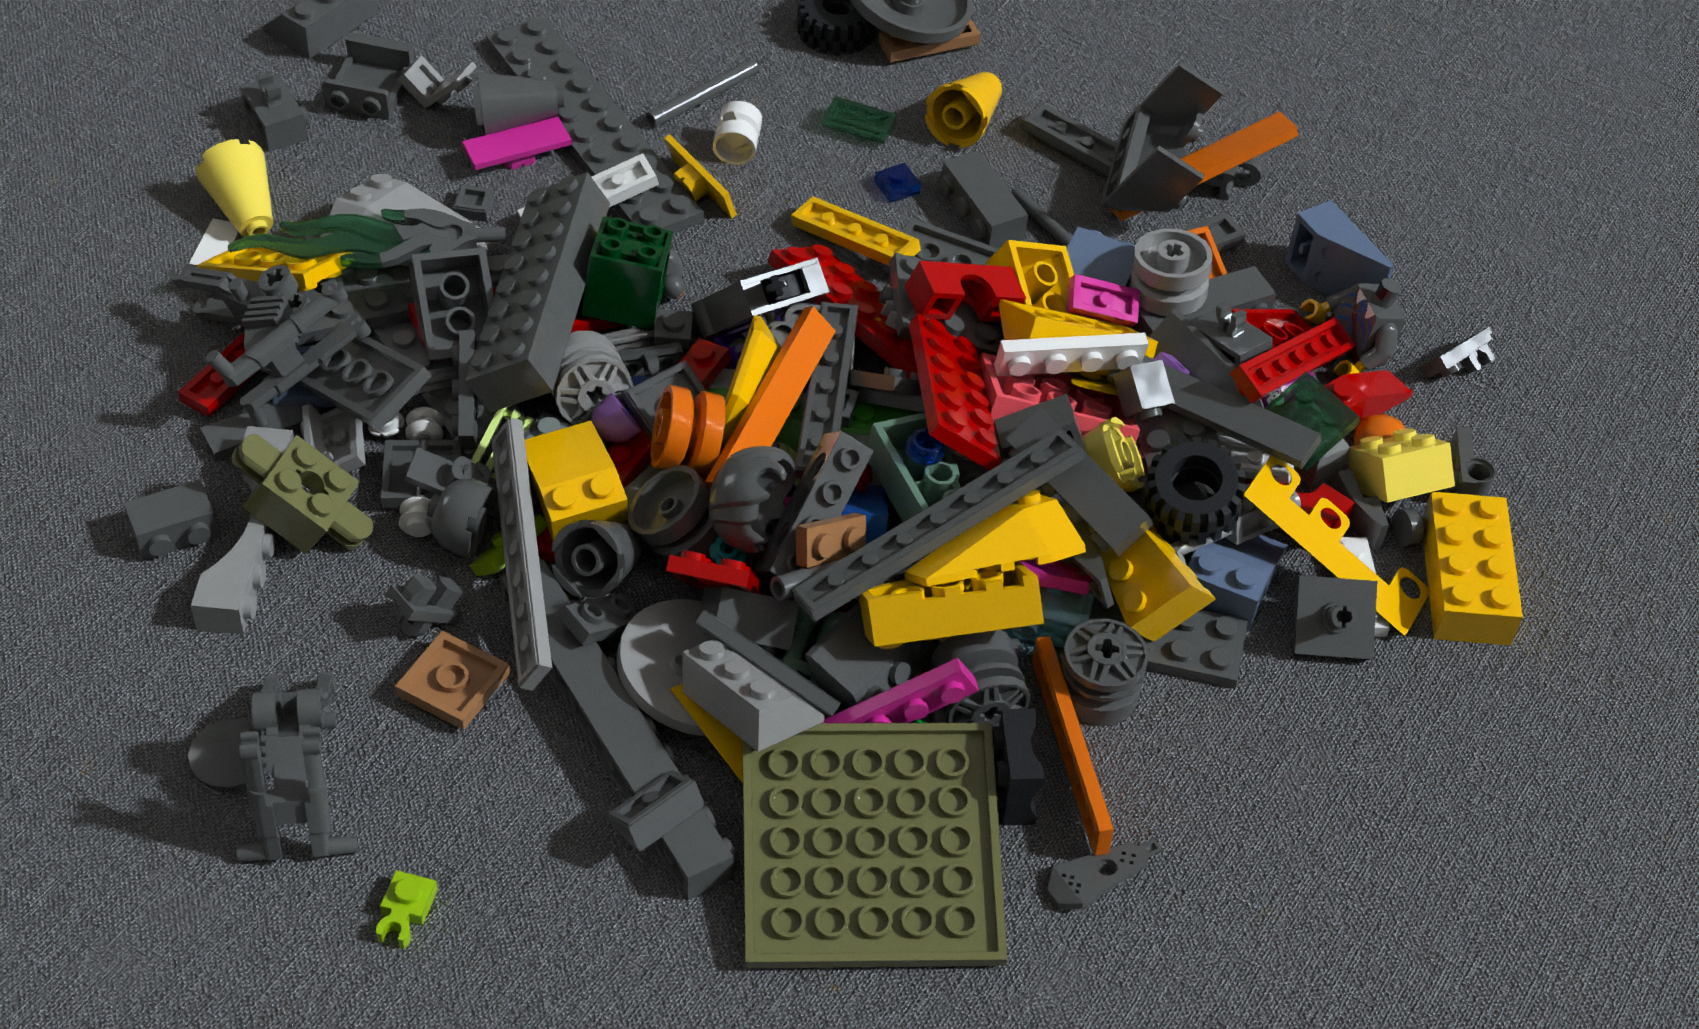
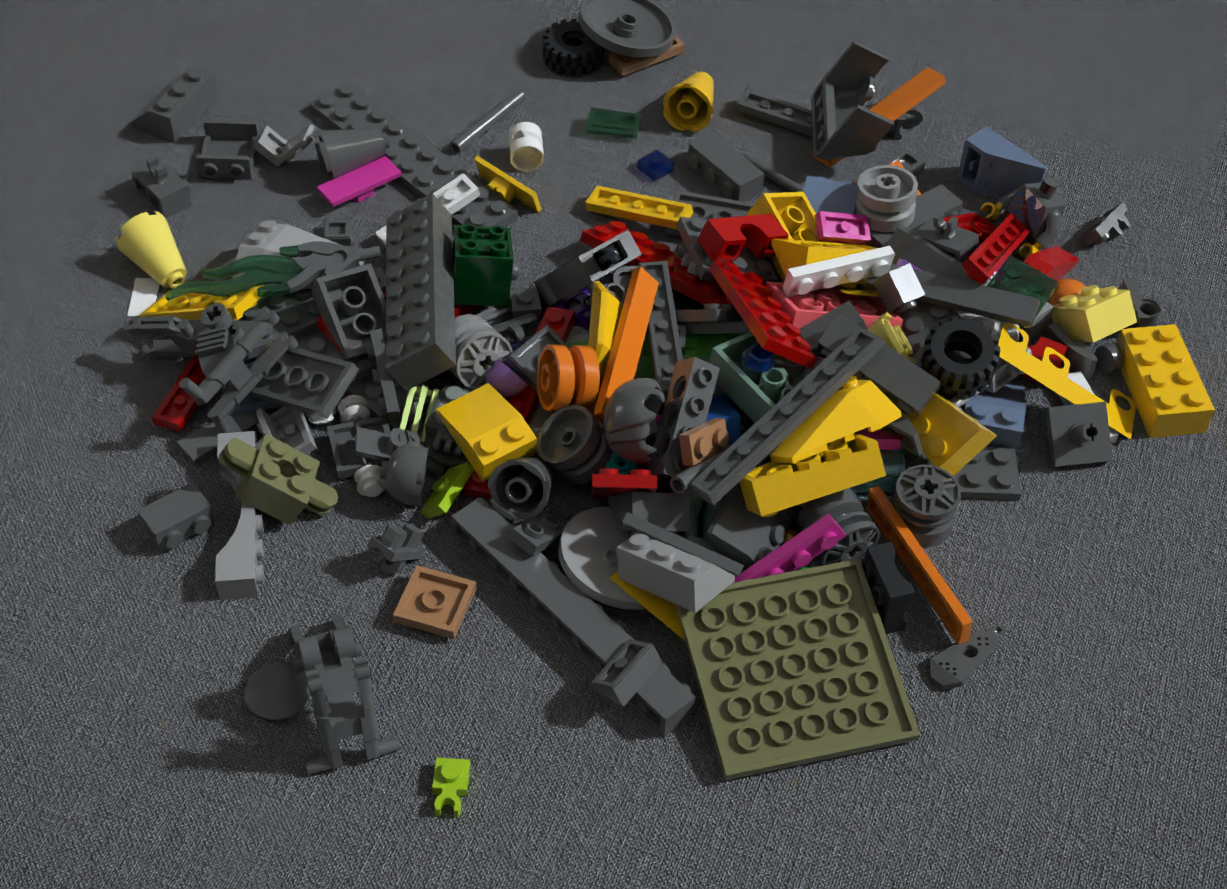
camera: 10 degrees left, 0 degrees up
(521, 555) = (466, 496): light grey tile -> none

